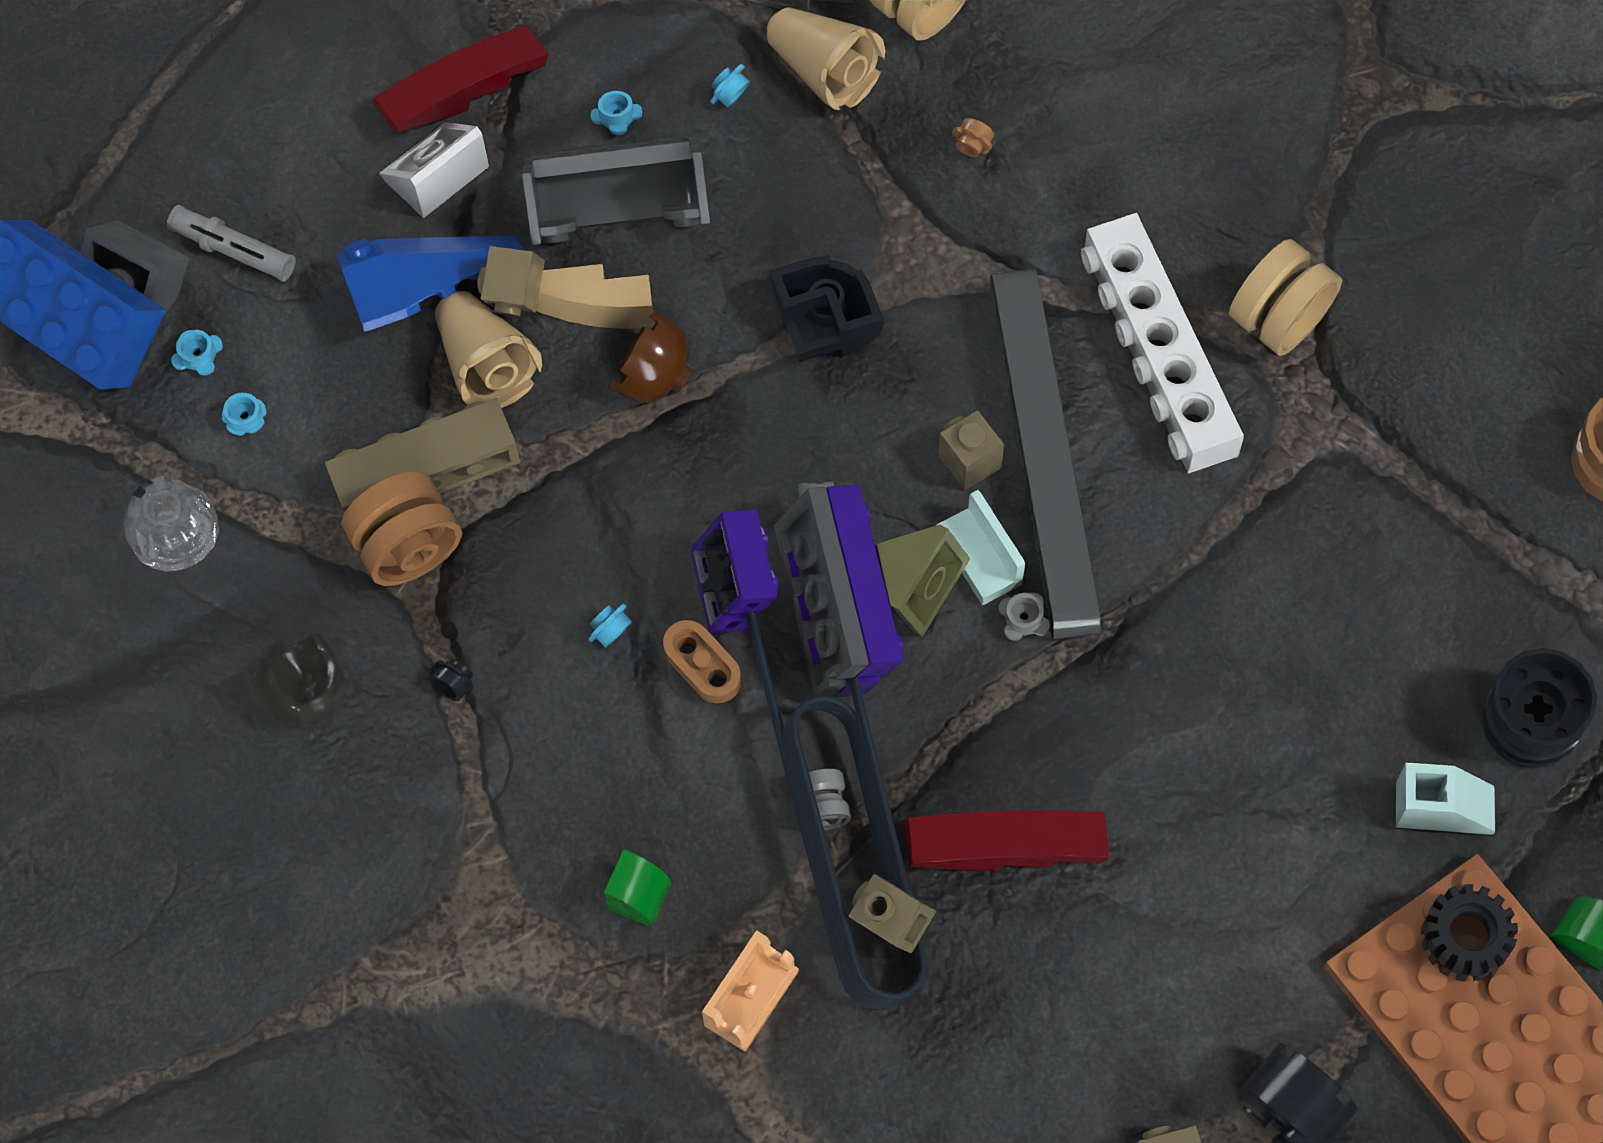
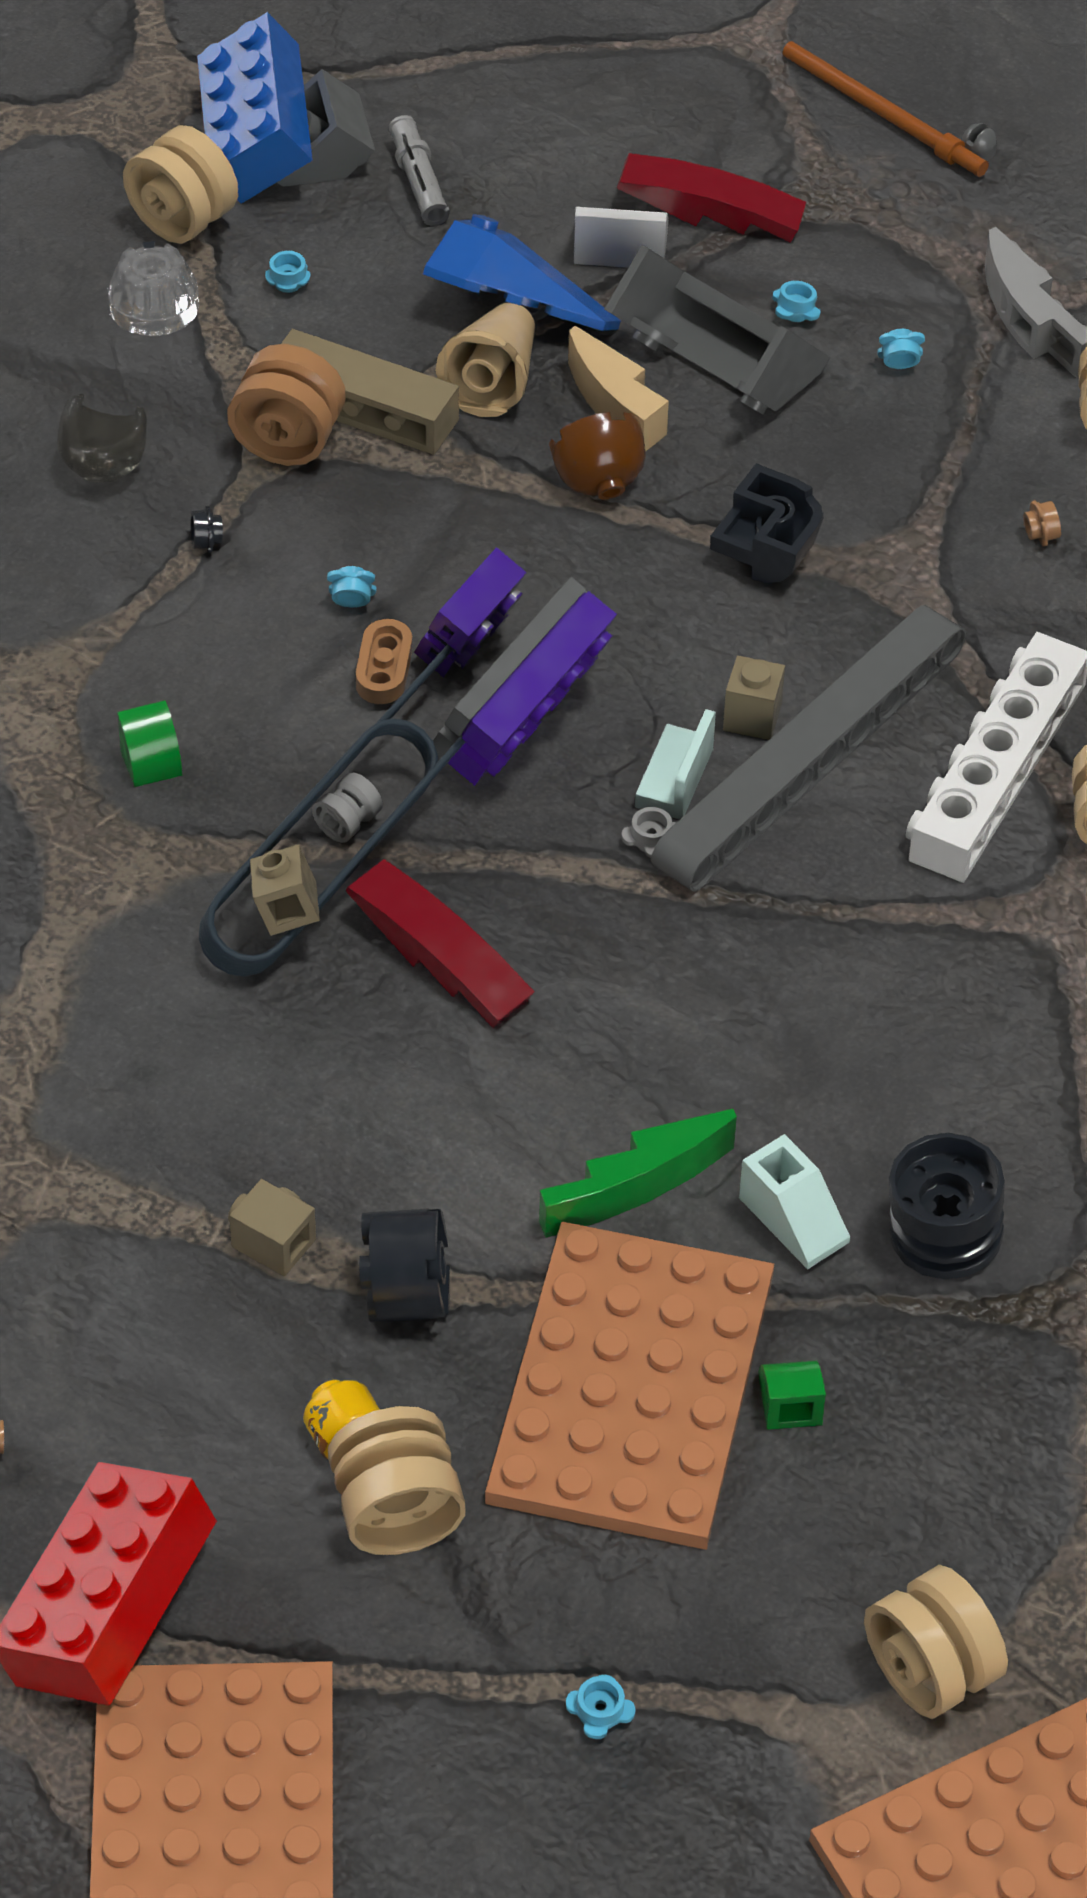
camera: 45 degrees right, 15 degrees down
(94, 418) = (180, 184): none -> tan wheel
(193, 341) = (308, 213): medium azure plate -> none
(511, 281) = (561, 320): dark tan brick -> none
(749, 992) = (138, 867): light nougat hinge -> none
(827, 54) = (998, 386): tan cone -> none
(921, 573) = (597, 726): olive slope -> none
(1330, 864) = (654, 1165): none -> green slope
(1485, 909) = (690, 1259): black tyre -> none

